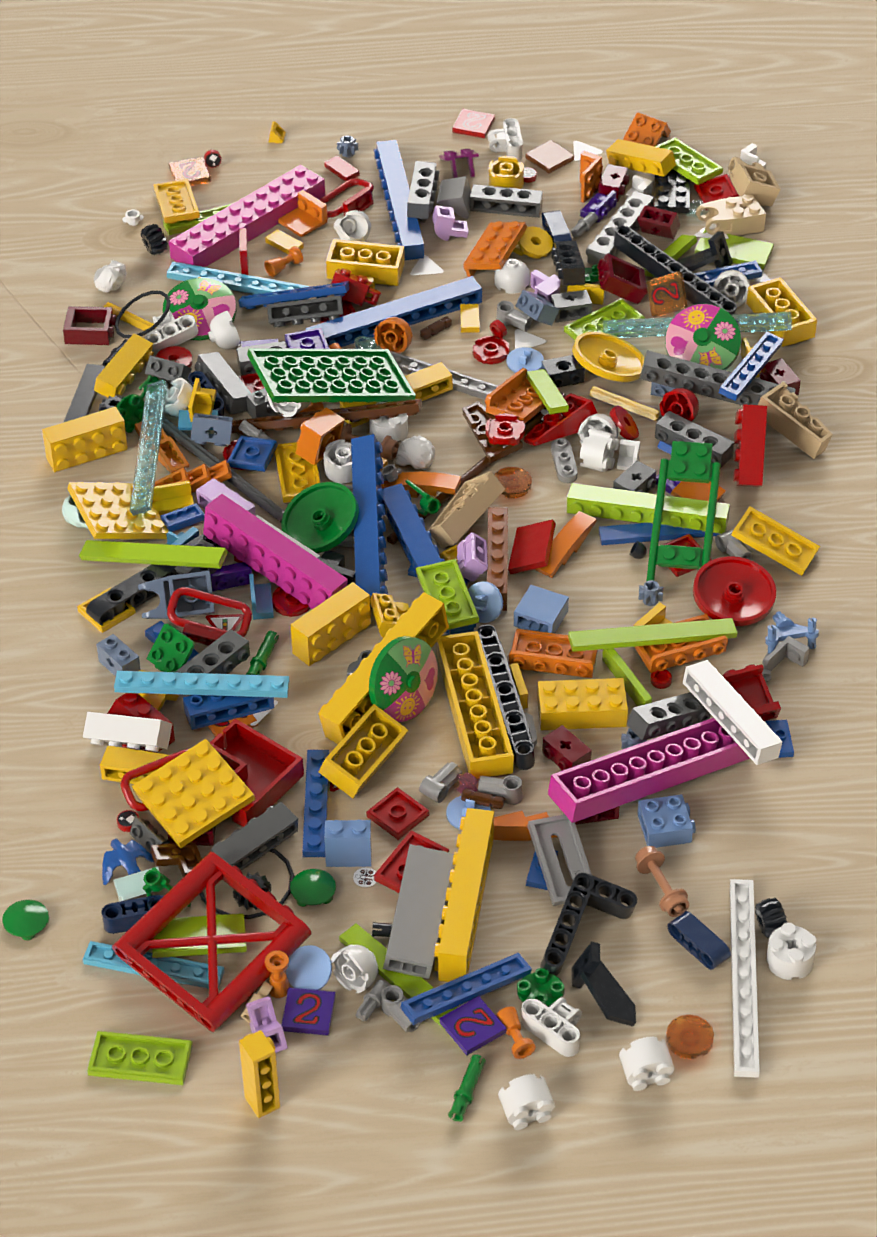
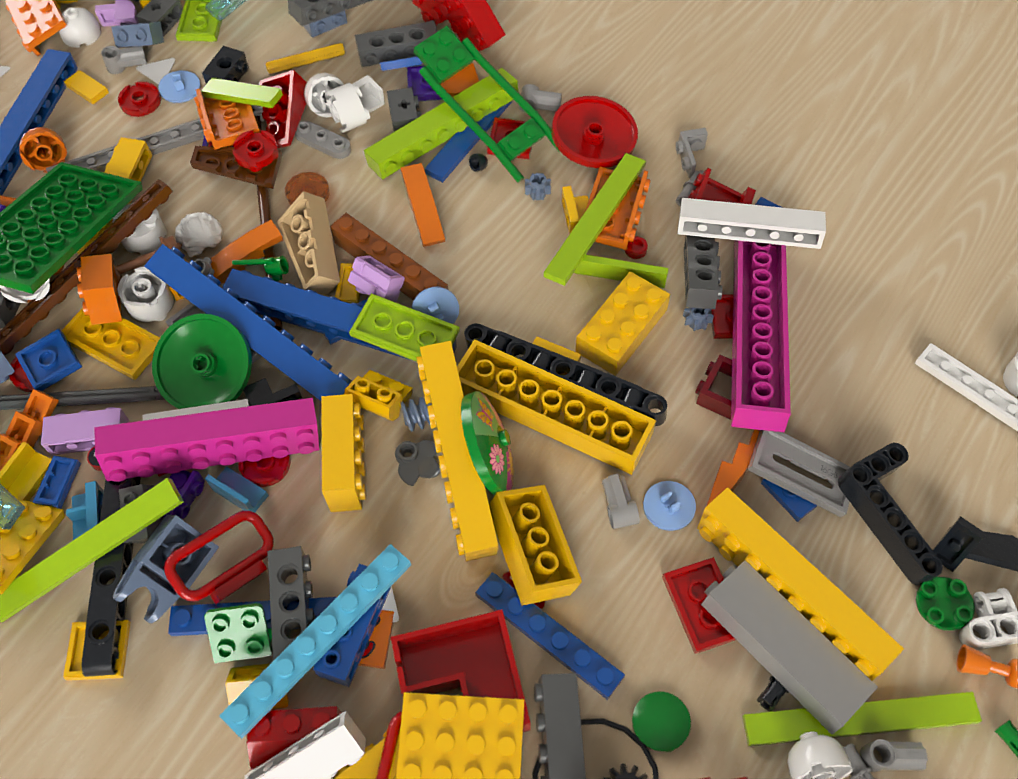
camera: 50 degrees left, 15 degrees up
(117, 655) = (183, 691): sand blue brick -> none
(225, 621) = (233, 545): sticker -> none
(252, 431) = (24, 339): light grey axle -> none
(259, 662) = (318, 551): green pin -> none
(348, 843) = (647, 643): medium blue brick -> none
(364, 343) = (21, 178): clear light blue tile -> none
(364, 877) = (680, 658): white sticker -> none
(397, 813) = (623, 568): red tile -> none
(435, 327) = (67, 116): reddish brown axle -> none
(465, 988) = (916, 678): blue plate -> none
(467, 781) = (640, 480): clear pink plant -> none
(472, 1025) = (962, 701): dark purple tile -> none
(483, 798) = (669, 482): reddish brown axle -> none
(498, 329) = (125, 76): red tile -> none
(509, 788) = (667, 458): light grey piece -> none
(531, 546) = (402, 227): red tile -> none
(541, 610) = (486, 275): medium blue brick -> none
(550, 654) = (538, 305): orange bracket -> none
(565, 749) = (668, 373): dark red brick -> none
(608, 356) = (248, 30): yellow dish -> none
(625, 423) = (331, 69): red tile -> none
(666, 821) = (813, 358): medium blue brick -> none
(674, 901) = (918, 418): nougat piece -> none
(680, 402) = (355, 21): red cylinder -> none
(699, 940) = (970, 431): dark blue beam -> none
(770, 915) = (989, 359): black gear -> none
(775, 540) = (564, 70): yellow plate -> none
(786, 627) = (669, 129): medium blue axle -> none

